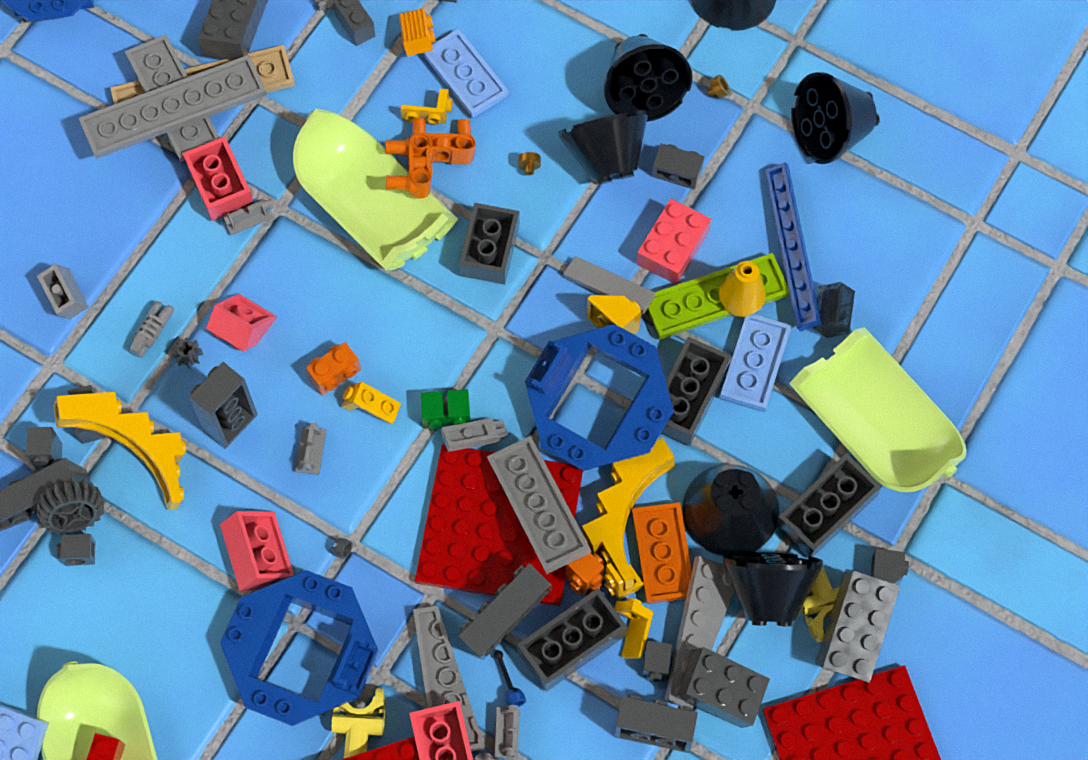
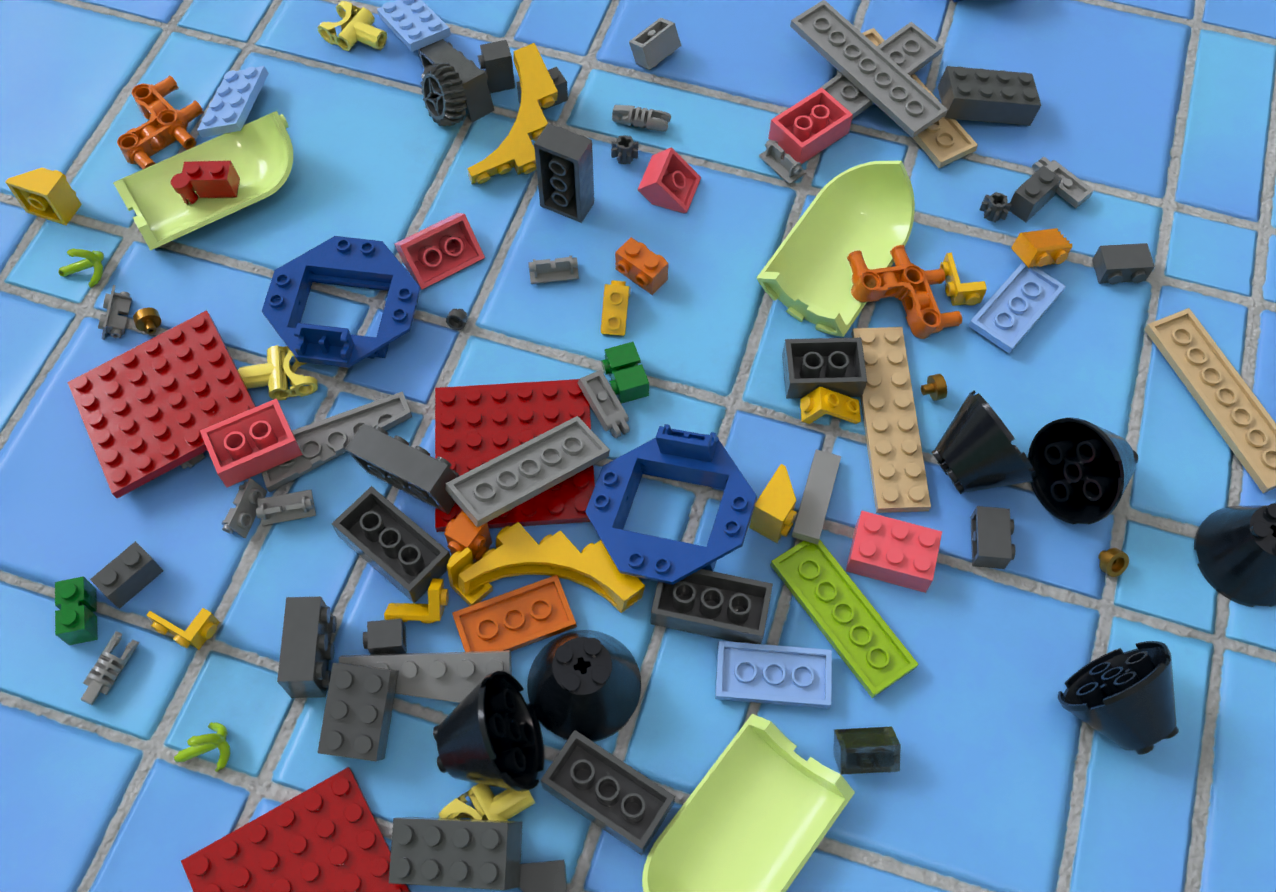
camera: 75 degrees right, 5 degrees down
(77, 549) = (412, 118): dark grey brick -> none
(357, 54) = (995, 207): none -> dark grey gear
(513, 696) = (327, 506): hinge -> none
(525, 252) = (825, 401): none -> yellow bracket
(550, 207) = (891, 424): none -> tan plate
(743, 290) = (853, 636): yellow cone -> none
(793, 247) = (933, 686): blue tile -> none

